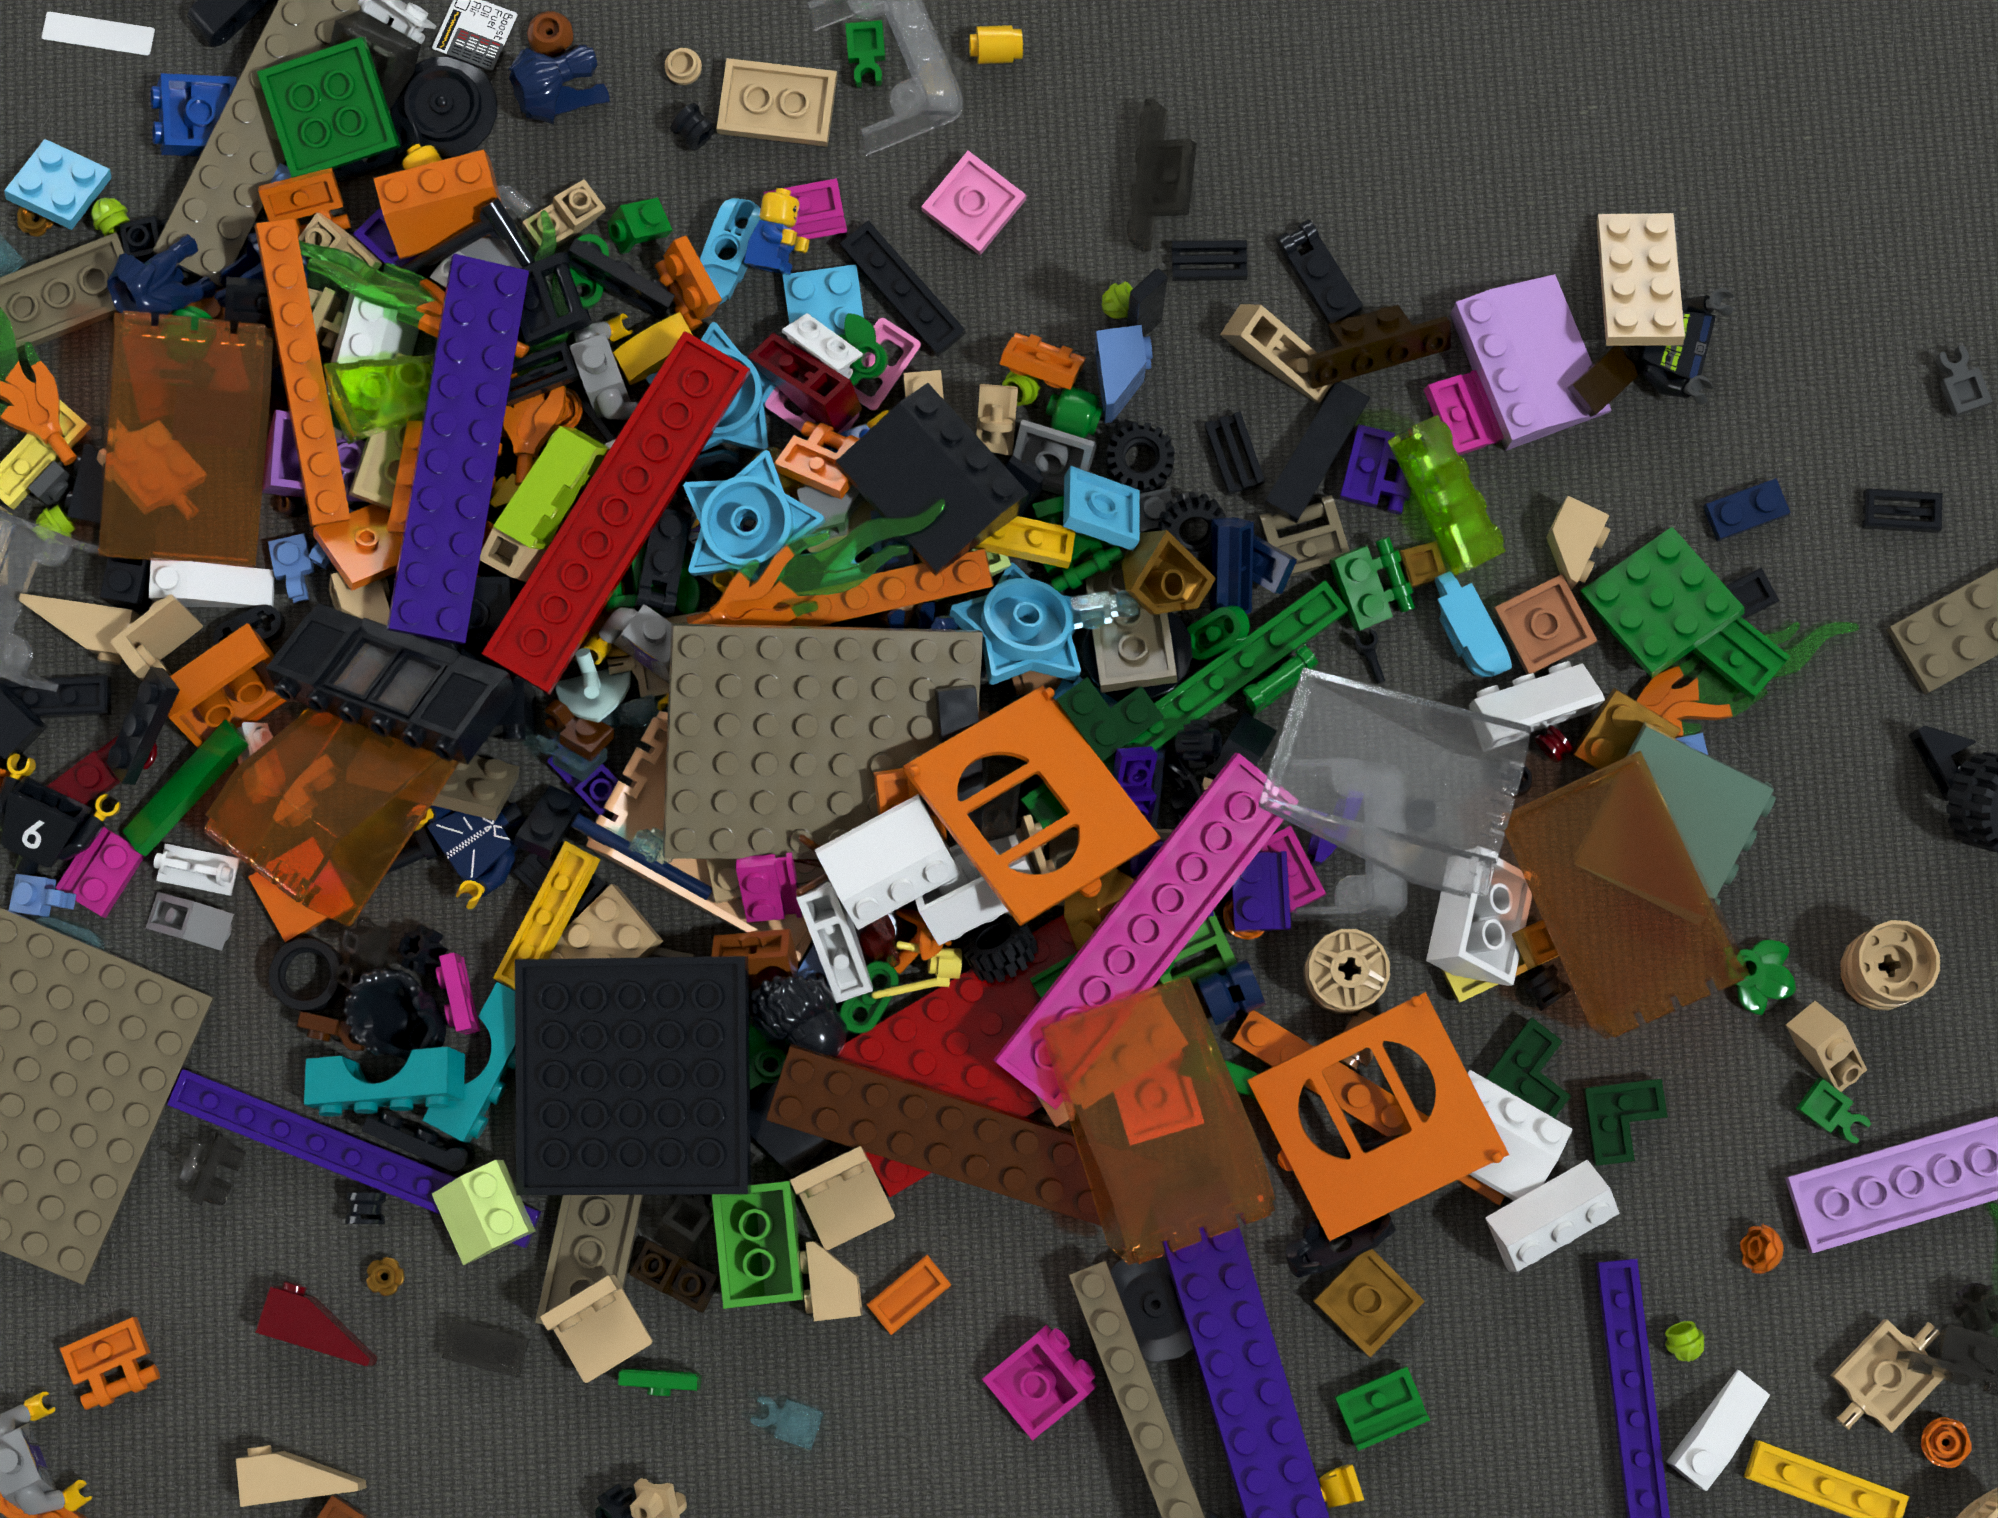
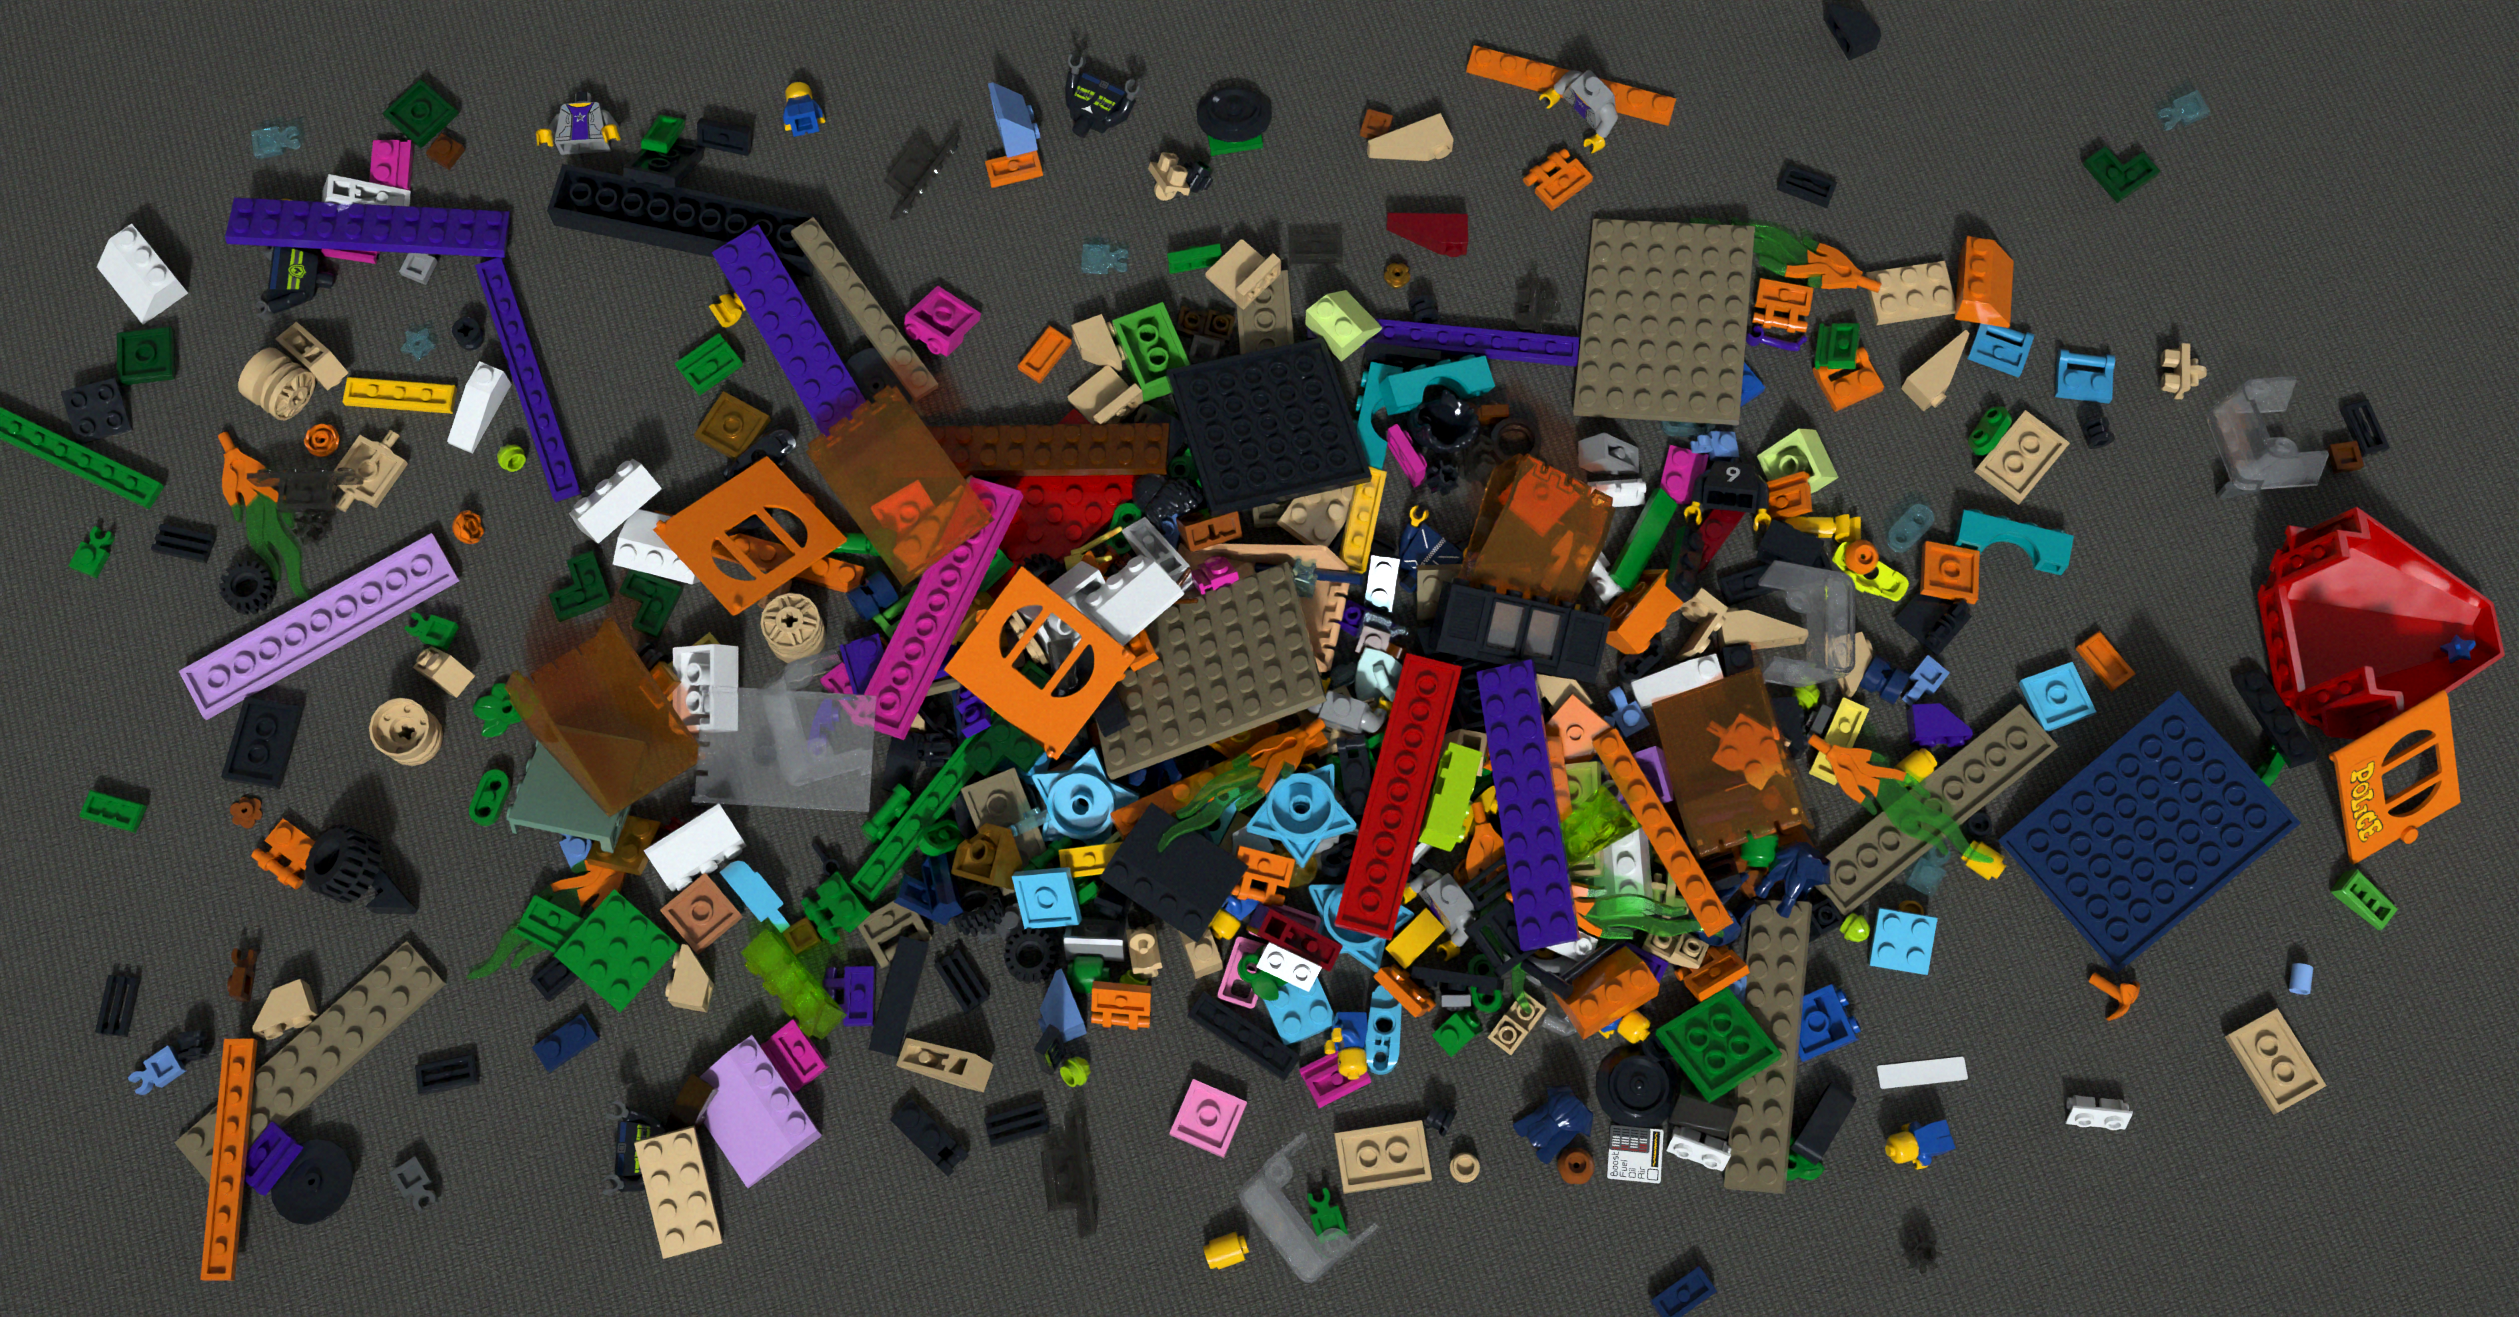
camera: 160 degrees right, 10 degrees down
(634, 256) = (1454, 999): none -> plate
(1376, 343) = (875, 1091): dark brown bracket -> none
(1791, 855) = (486, 797): none -> green plate

